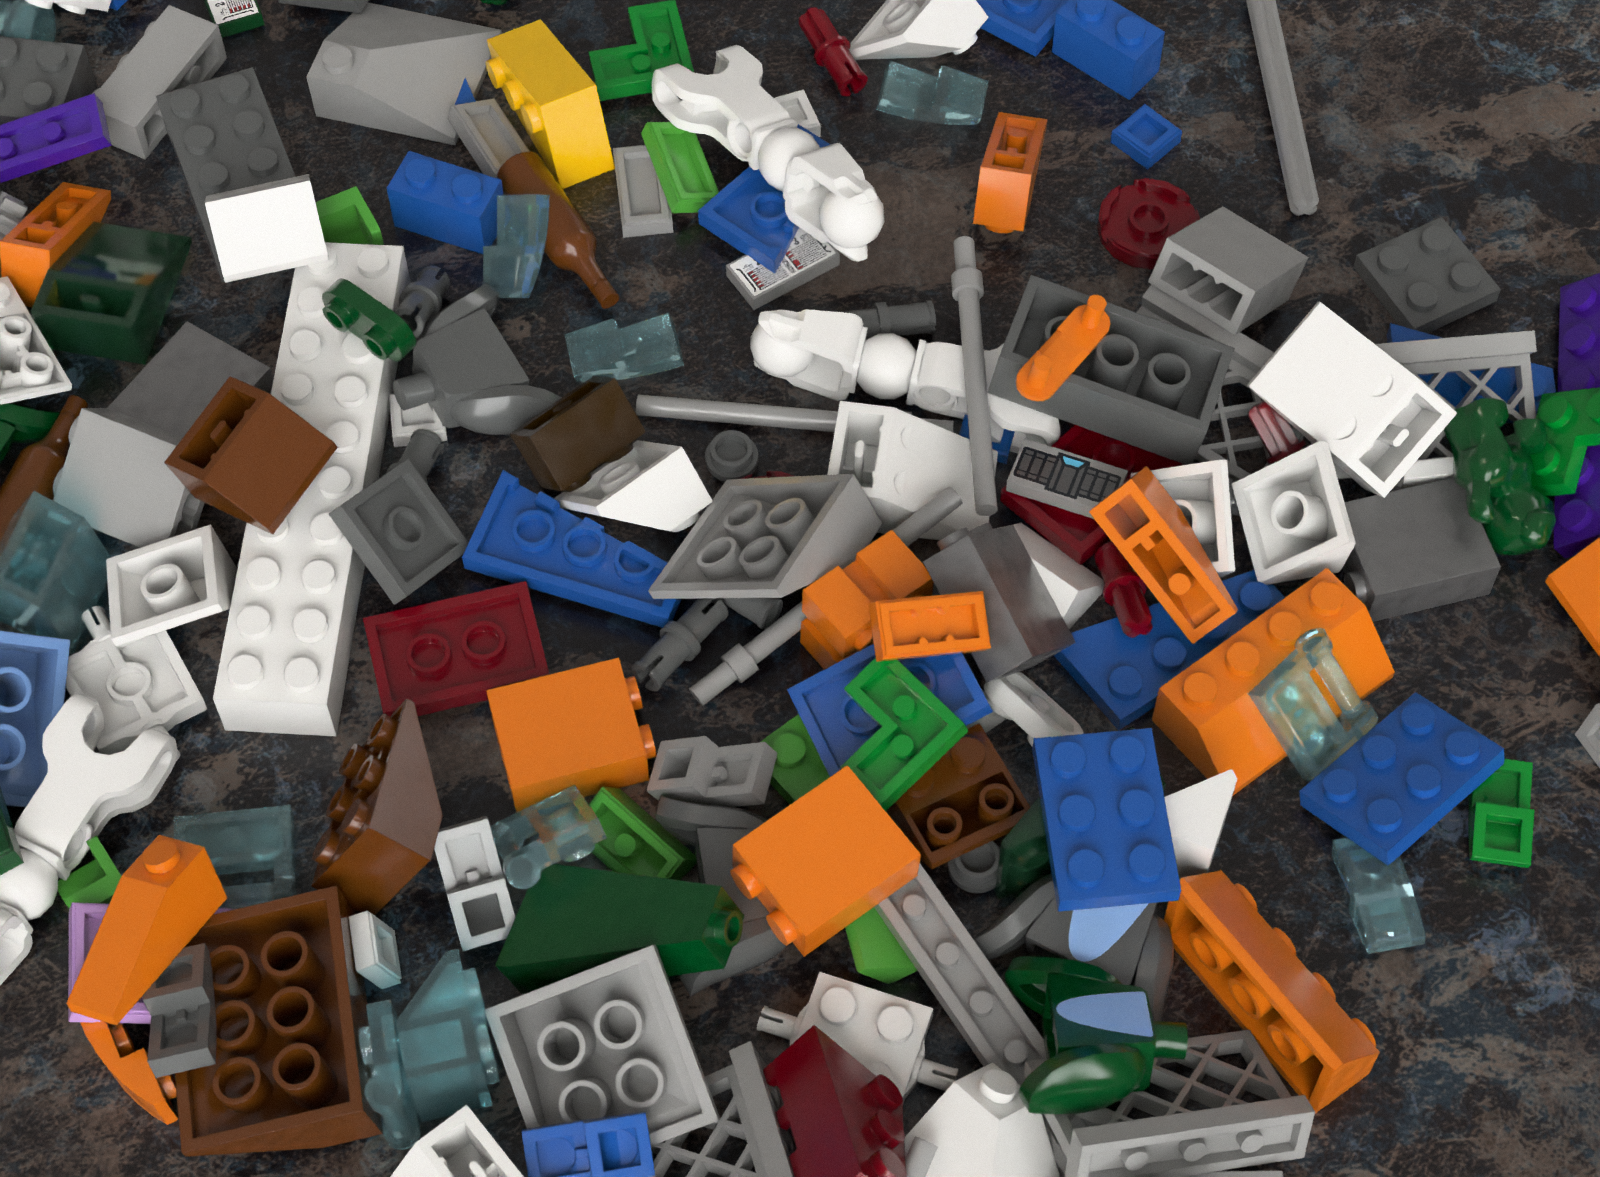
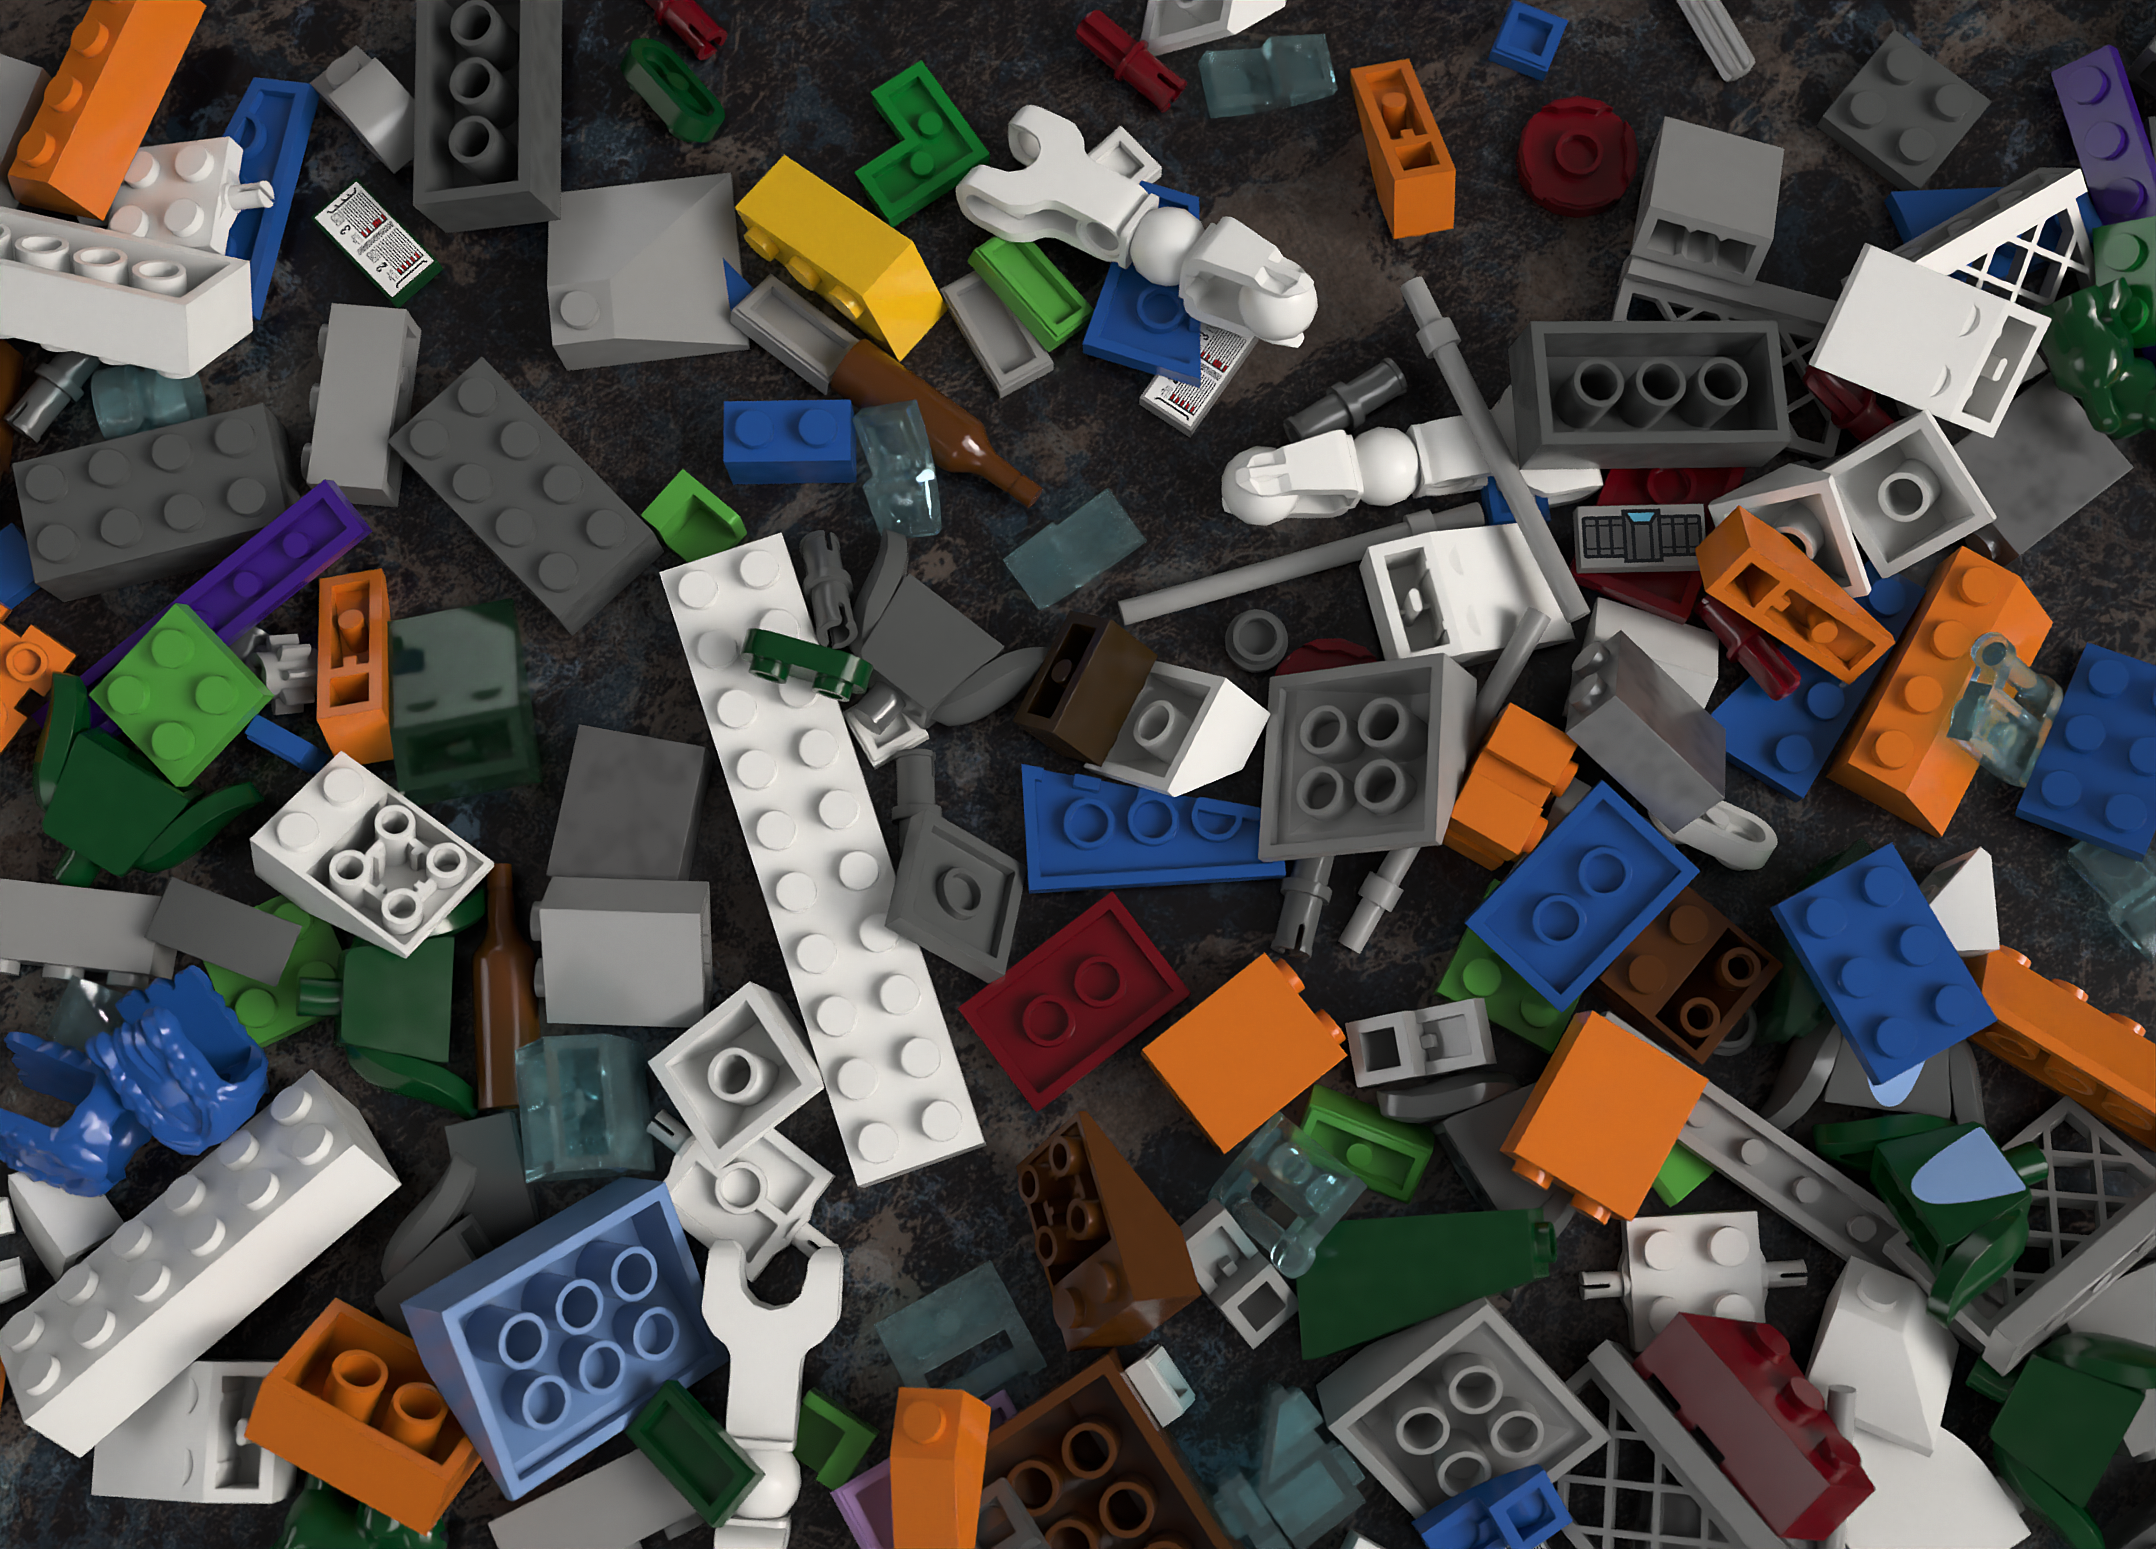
camera: 25 degrees left, 20 degrees up
(250, 455) = (768, 896): reddish brown slope -> none
(266, 228) = (619, 575): white slope -> none
(912, 731) = (1637, 937): green plate -> none
(929, 626) = (1613, 816): orange plate -> none
(1064, 350) = (1607, 408): orange piece -> none

